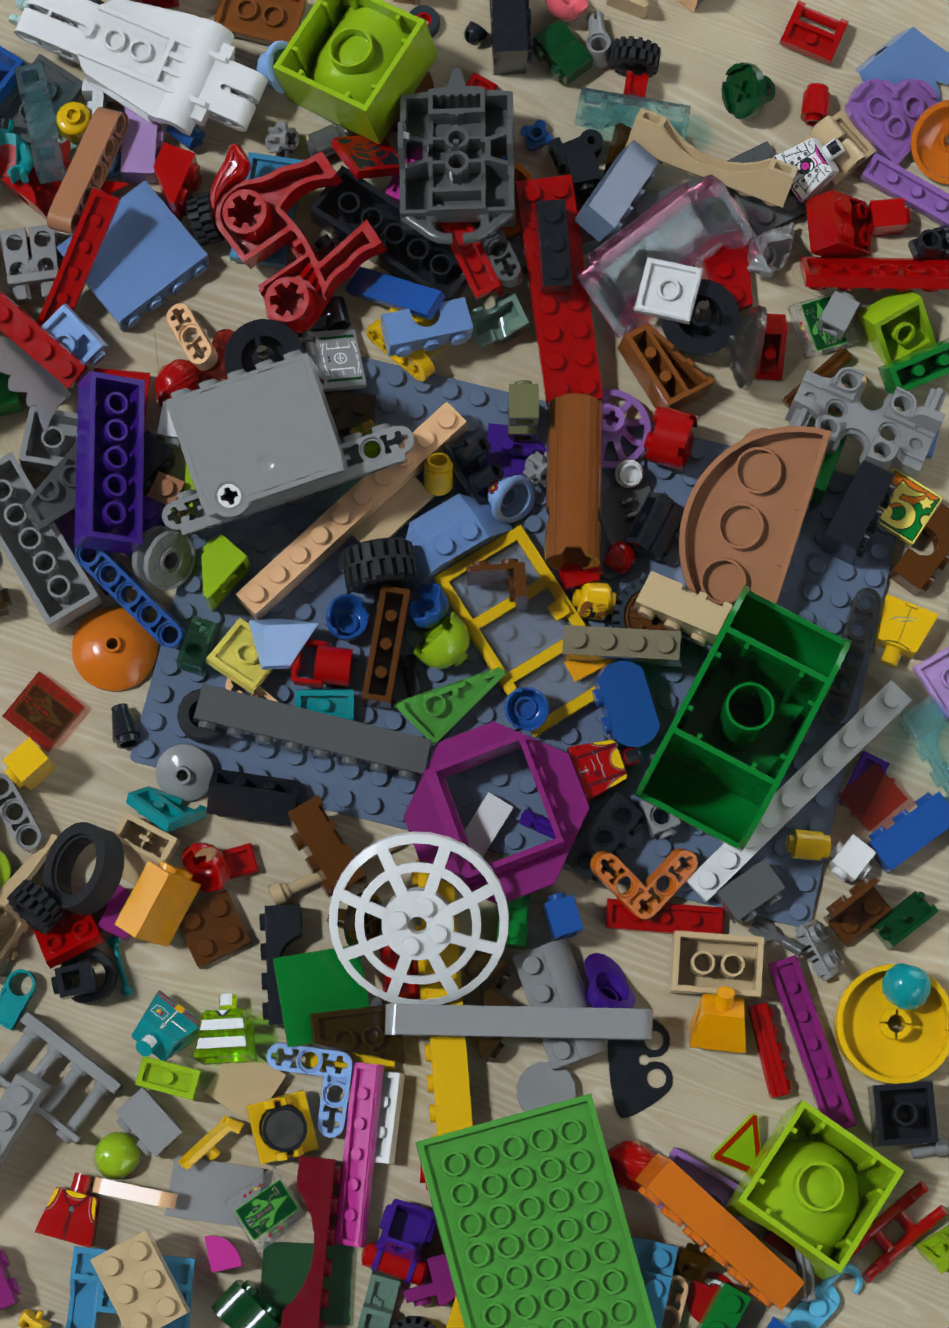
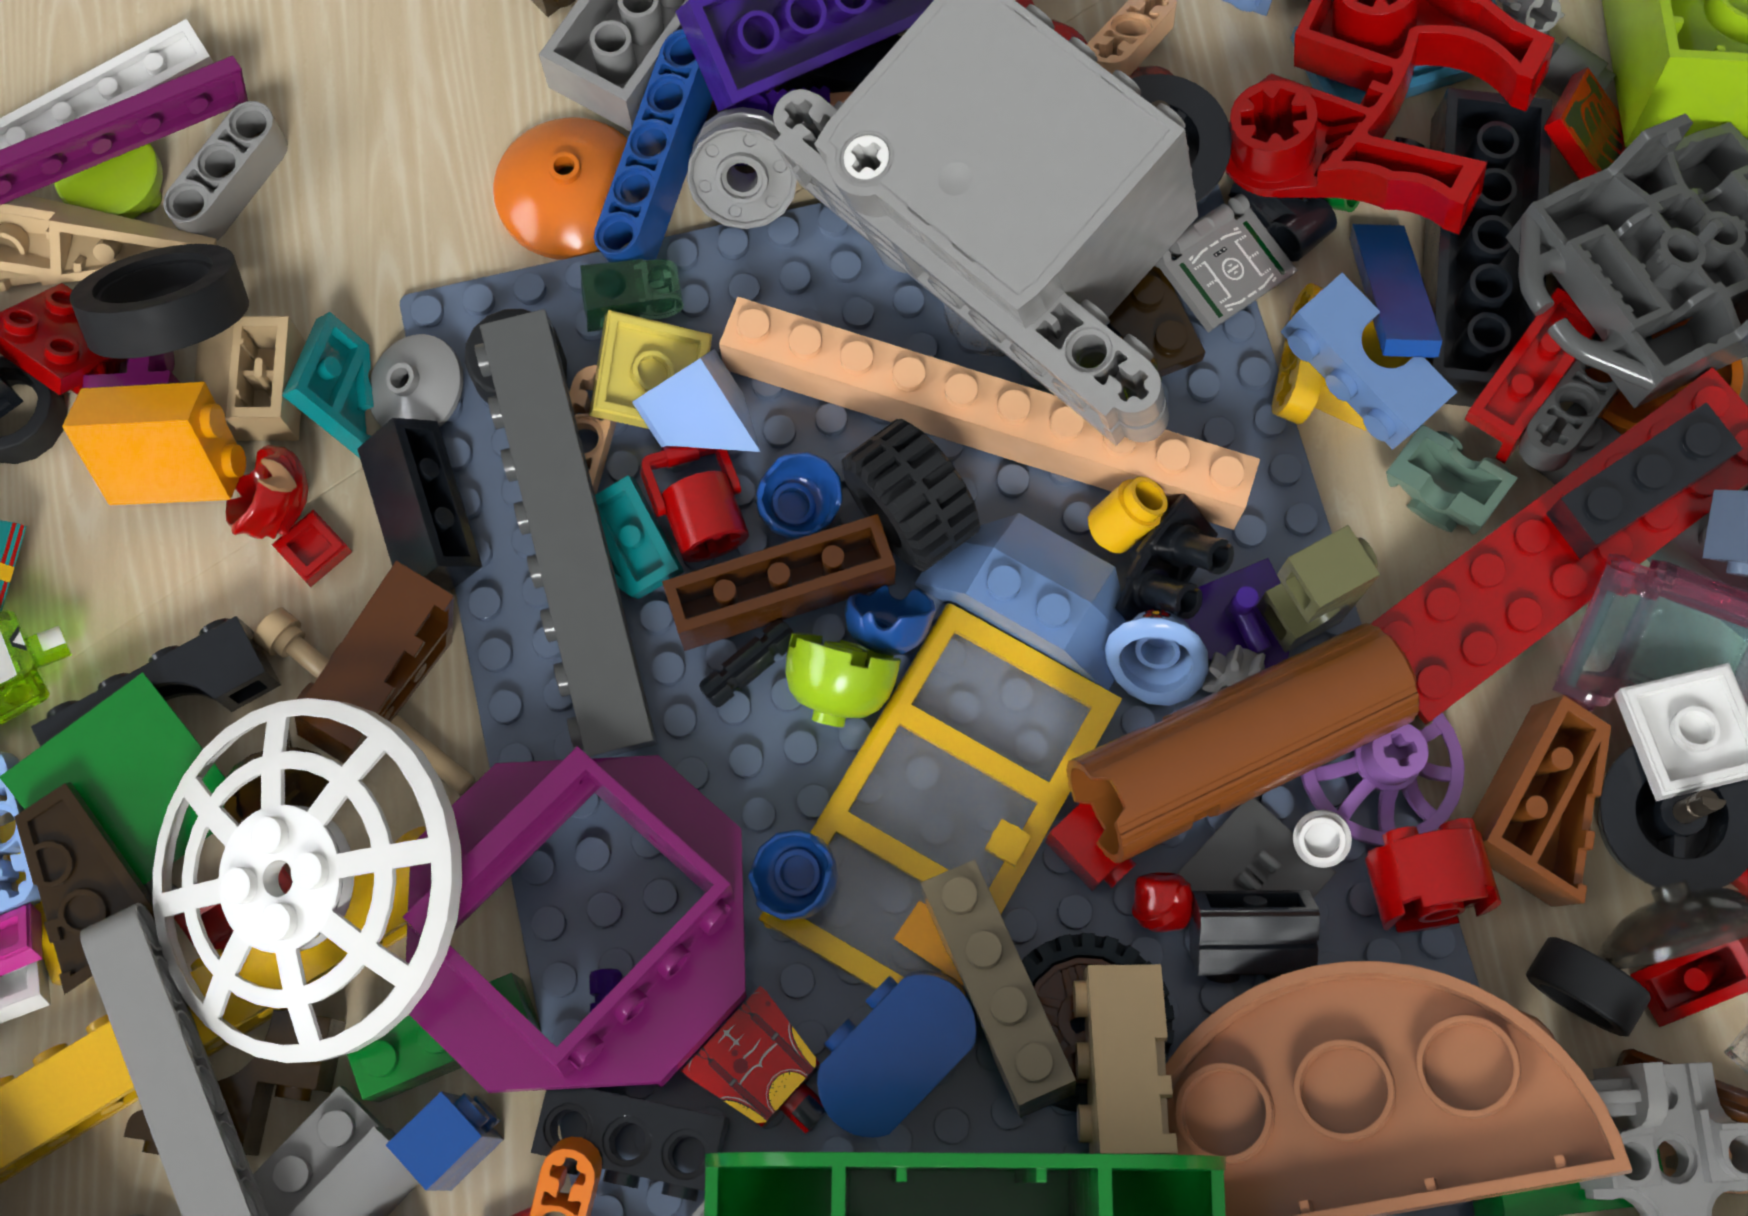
camera: 65 degrees right, 5 degrees down
(28, 765) = (304, 144): yellow brick -> none
(35, 906) = (61, 257): black tyre -> none
(43, 711) = (414, 137): clear red tile -> none
(114, 943) = (17, 480): teal hinge -> none
(124, 728) = (444, 260): black cone -> none
(213, 929) = (176, 562): reddish brown plate -> none
(222, 569) = (763, 256): lime slope -> none
(395, 512) = (1024, 485): tan tile -> none
(444, 706) = (724, 731): bright green wing -> none
(487, 823) = (559, 915): white tile -> none
(508, 571) = (1018, 722): reddish brown bracket -> none
(594, 600) = (1058, 896): yellow head -> none
(750, 400) = (1588, 986): none -> black tyre

